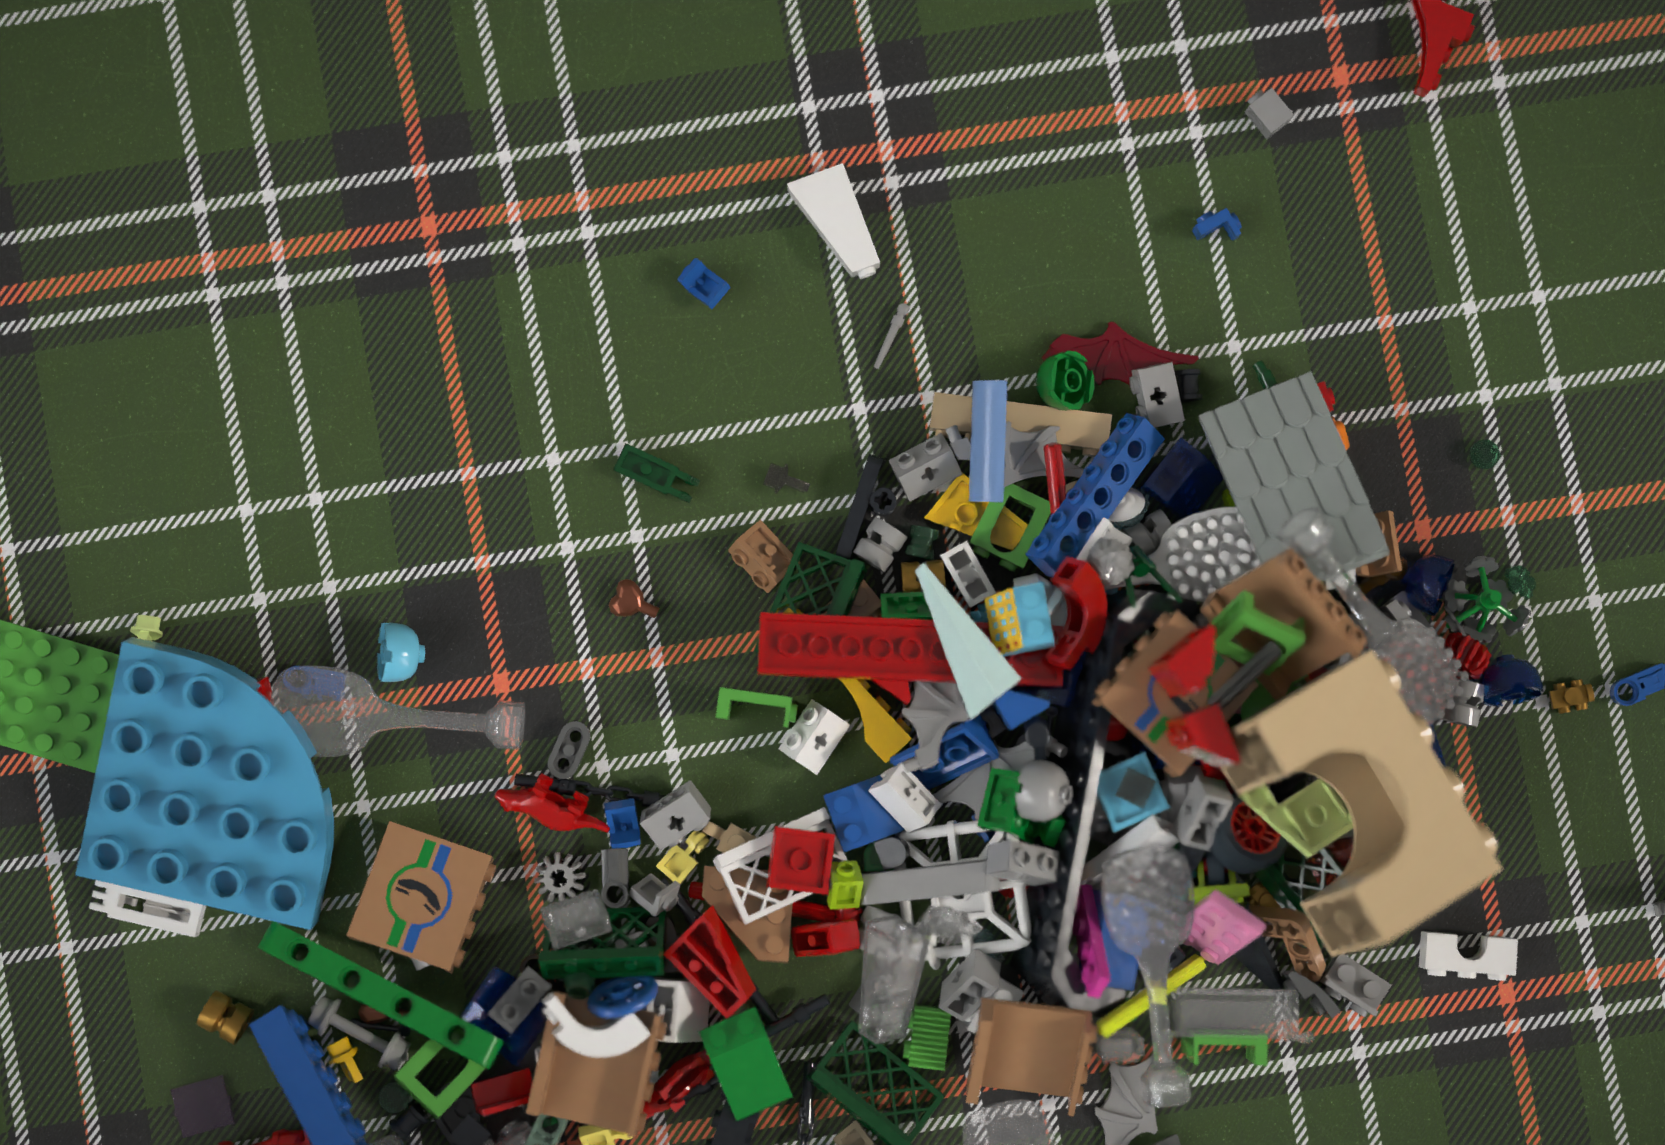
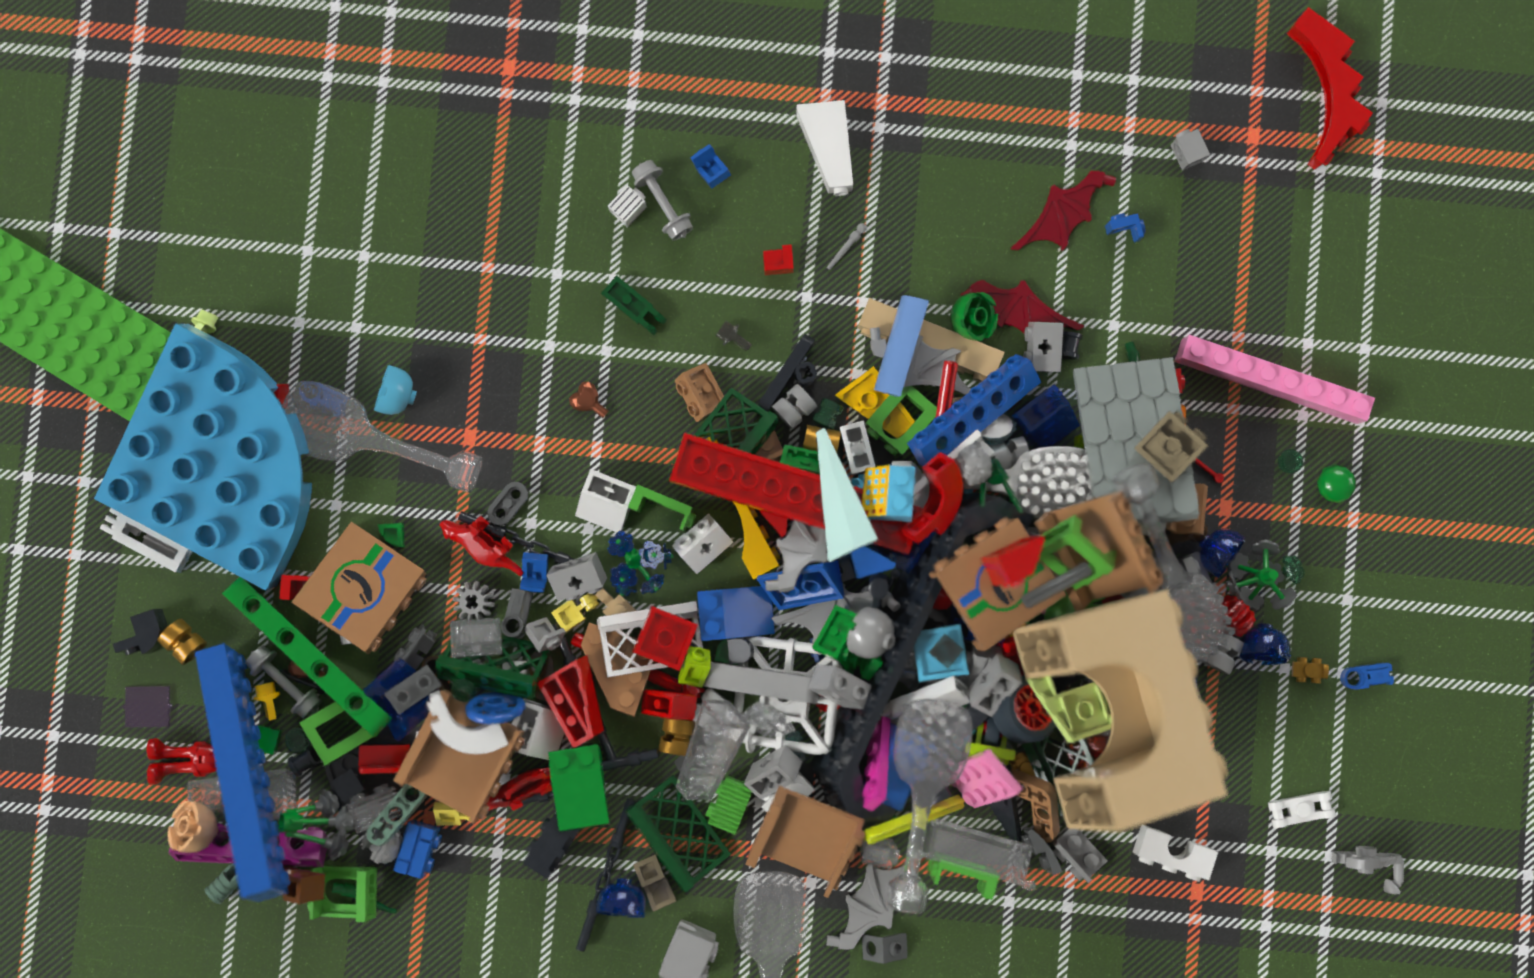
camera: 15 degrees right, 0 degrees up
(181, 1012) = (147, 628): none -> black brick
(340, 916) = (291, 586): none -> red panel
(361, 1106) = (269, 739): none -> green tile
(441, 822) = (393, 533): none -> green tile
(506, 942) = (418, 640): none -> dark grey hinge
(617, 355) = (628, 205): none -> white brick
(630, 312) = (646, 174): none -> light grey piece
(685, 717) = (605, 501): none -> white slope
(752, 771) = (646, 557): none -> clear blue plant
(814, 374) = (778, 261): none -> red panel
(844, 973) = (676, 736): none -> pearl gold wheel
(905, 798) = (761, 611): white hinge -> none
(925, 467) = (846, 355): light grey brick -> none
(1139, 225) = (1065, 211): none -> dark red animal
(1204, 736) = (1012, 624): red slope -> none
(1336, 477) = (1171, 445): none -> dark tan plate
(1404, 496) = (1217, 477): none -> red hinge
(1440, 362) = (1274, 379): none -> bright pink brick
(1545, 466) = (1336, 483): none -> green hair
(1604, 862) = (1301, 809): none -> white plate

